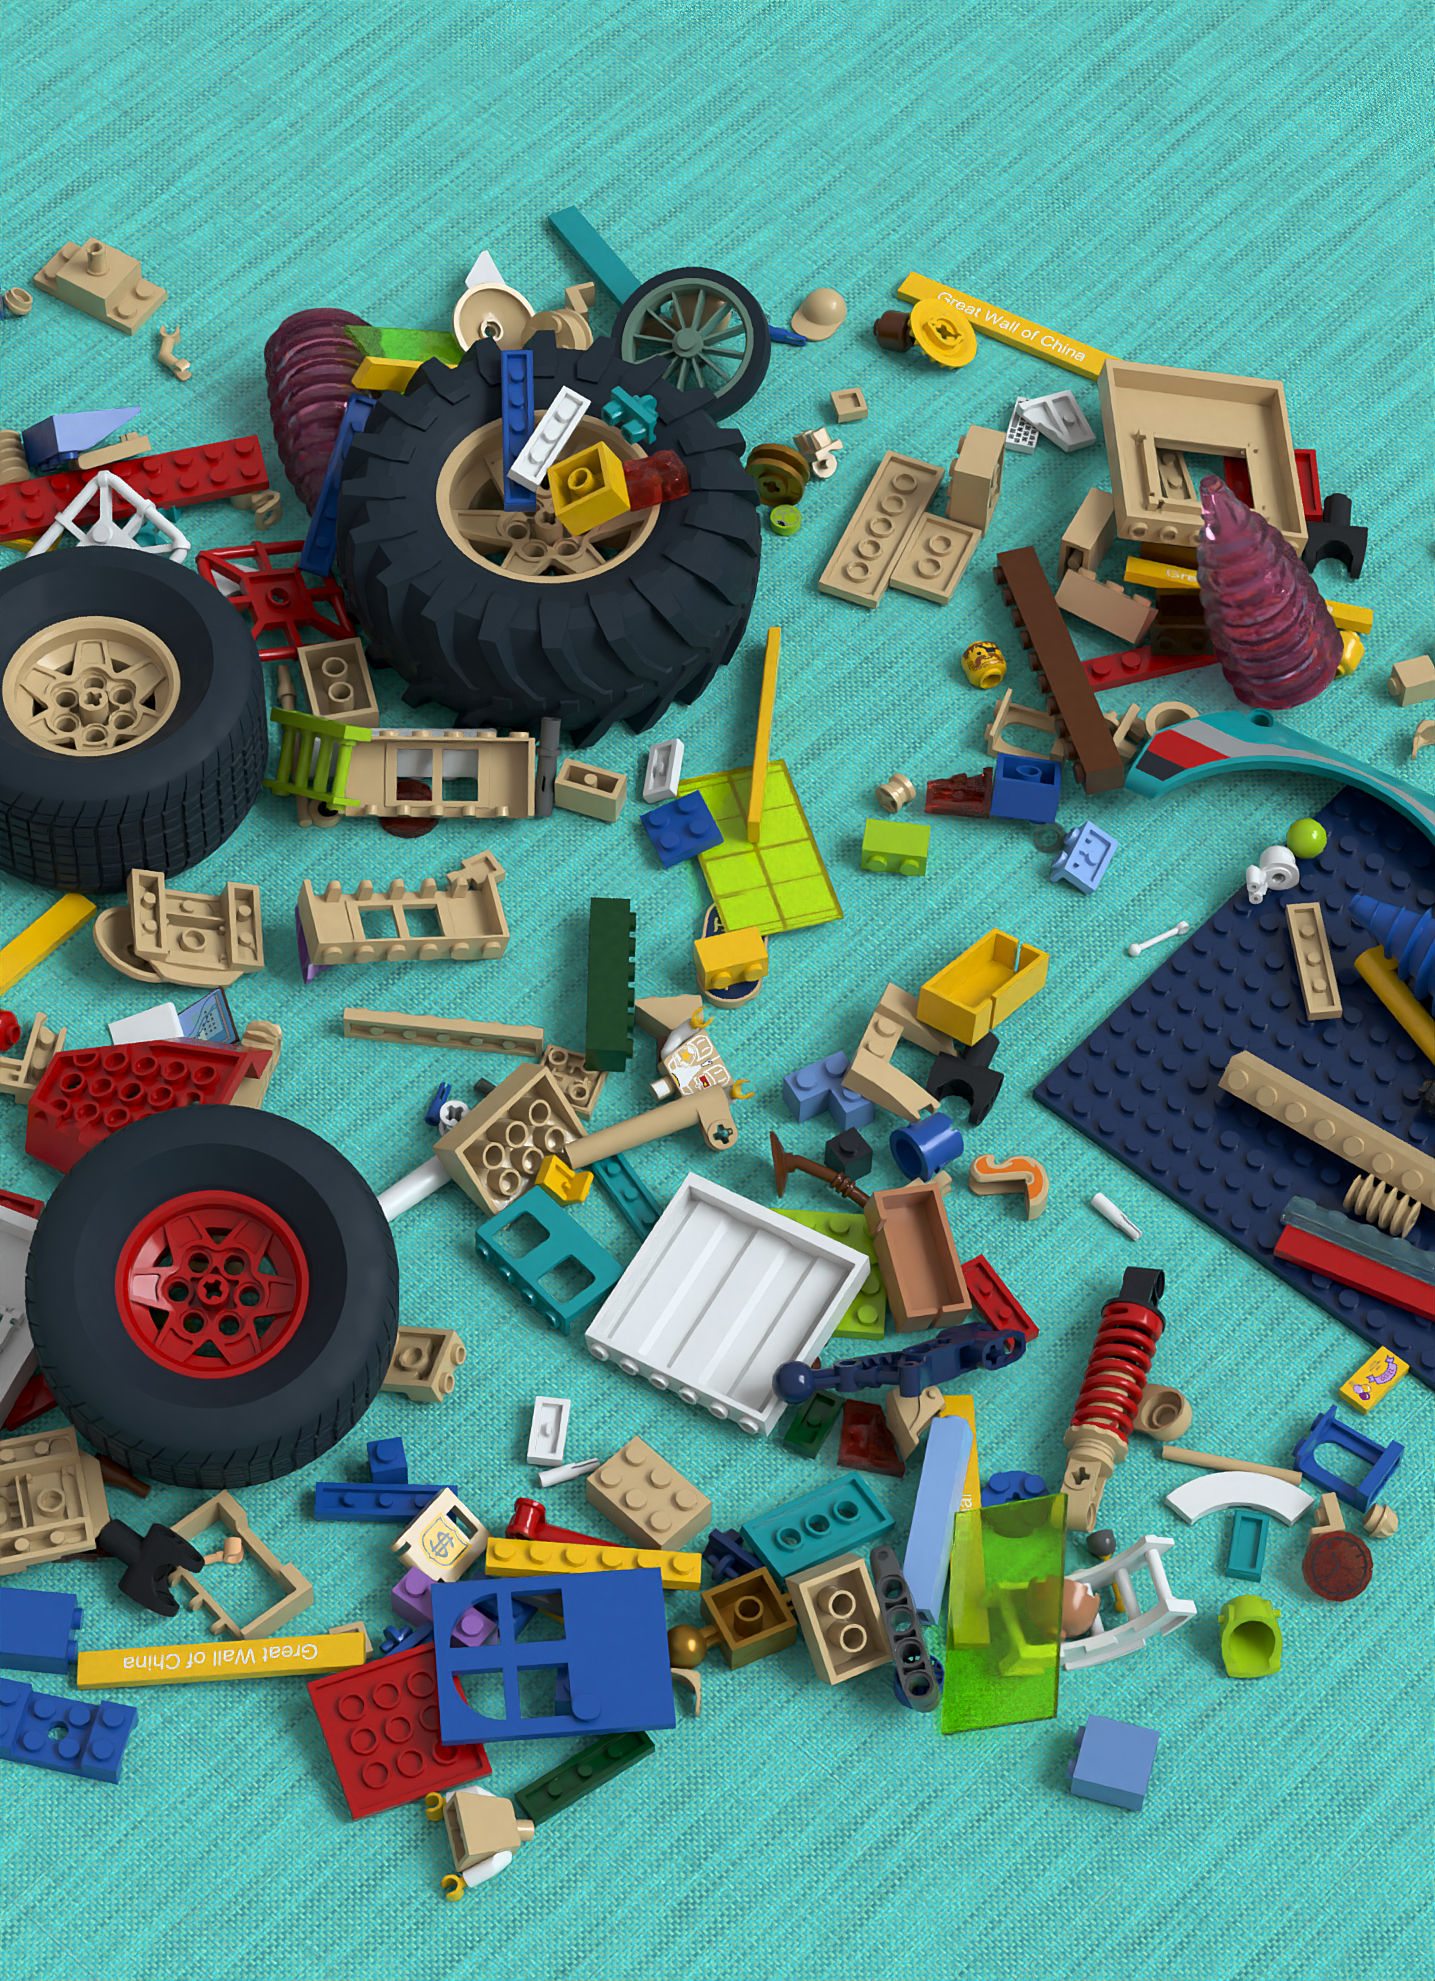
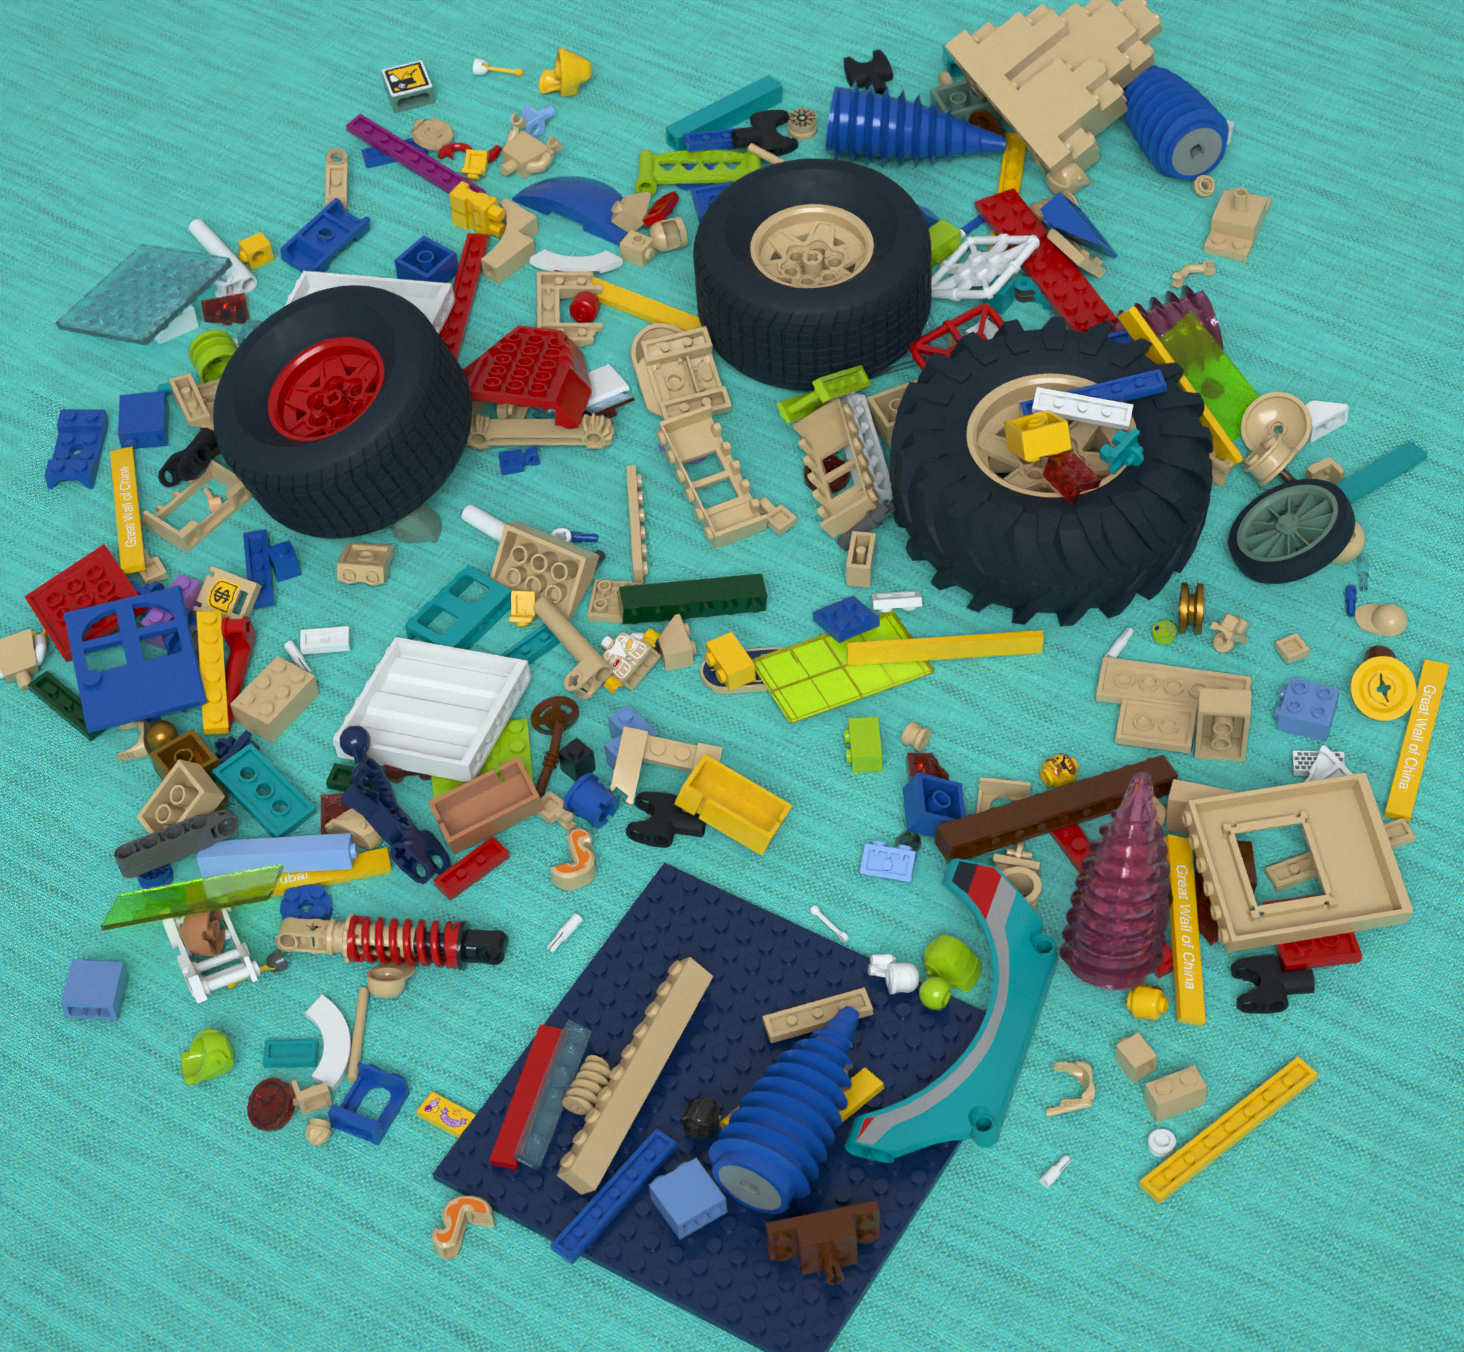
camera: 85 degrees right, 5 degrees down
(793, 567) = (1120, 643): none -> white piece
(947, 410) = (1307, 709): none -> medium blue brick
(1248, 826) = (952, 961): none -> lime helmet

